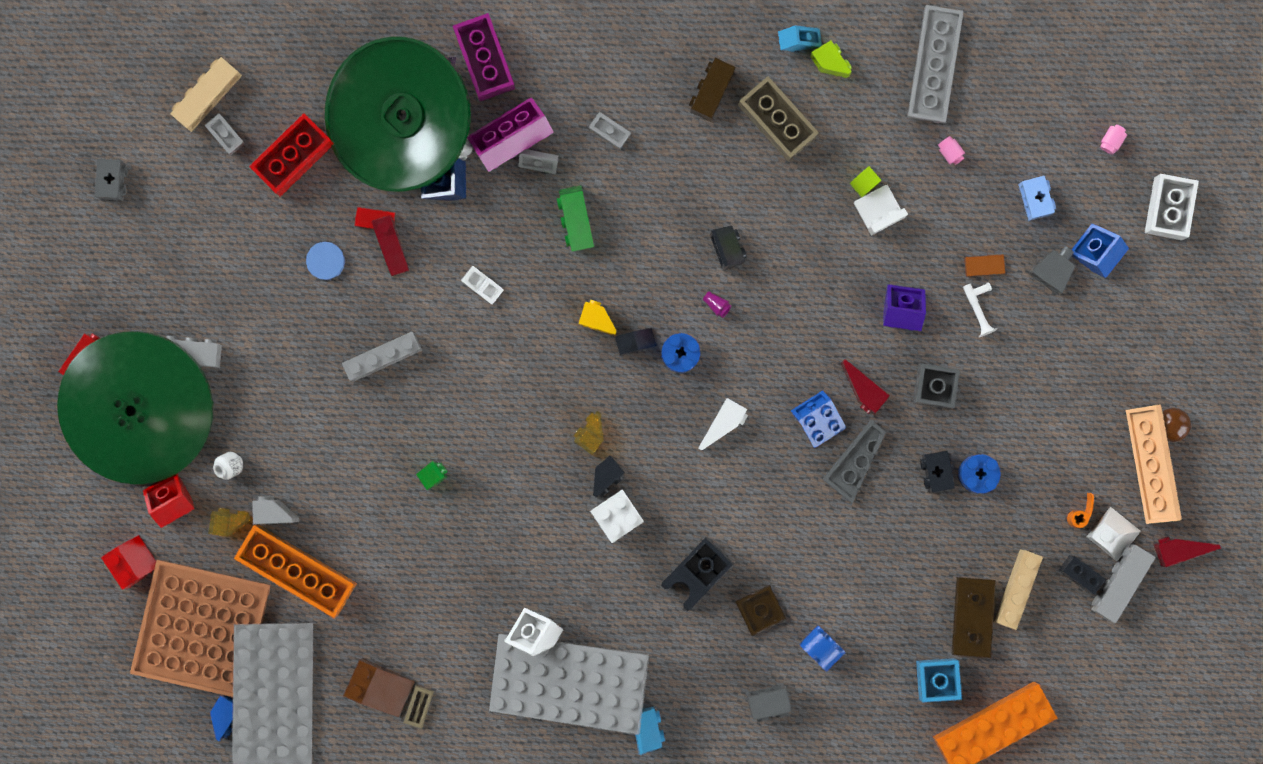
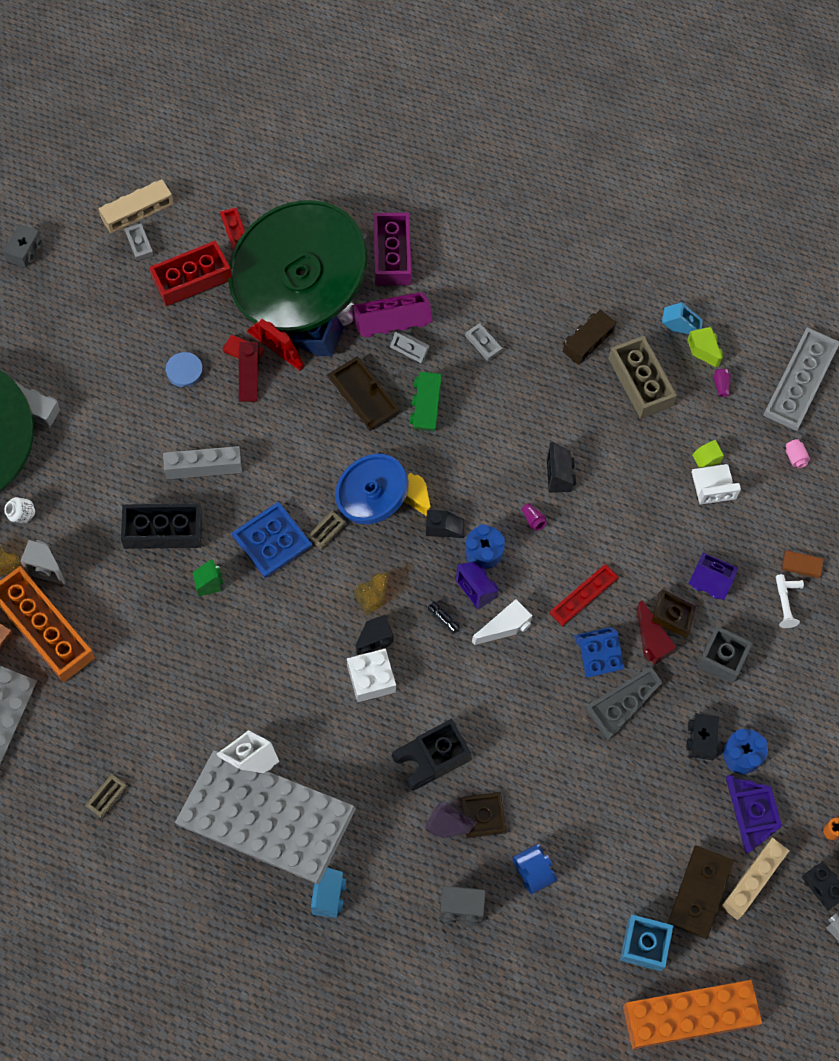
camera: 15 degrees right, 20 degrees down
(313, 82) = (233, 225): none -> red tile
(368, 436) = (161, 526): none -> black brick
(378, 688) = (74, 762): reddish brown slope -> none
(411, 204) = (276, 341): none -> red wing
(476, 412) = (271, 540): none -> blue plate
(482, 285) = (319, 433): white slope -> none
(510, 227) = (363, 393): none -> dark brown container
(518, 398) = (316, 542): none -> dark tan tile
(554, 331) = (371, 489): none -> blue dish
(664, 435) = (443, 618): none -> black axle
(685, 393) = (476, 584): none -> dark purple slope
(733, 630) = (448, 822): none -> clear purple slope
(788, 367) = (583, 595): none -> red tile
(858, 95) = (722, 381): none -> magenta cone
(878, 360) = (674, 613): none -> dark brown tile
(1001, 525) = (754, 811): none -> dark purple wing

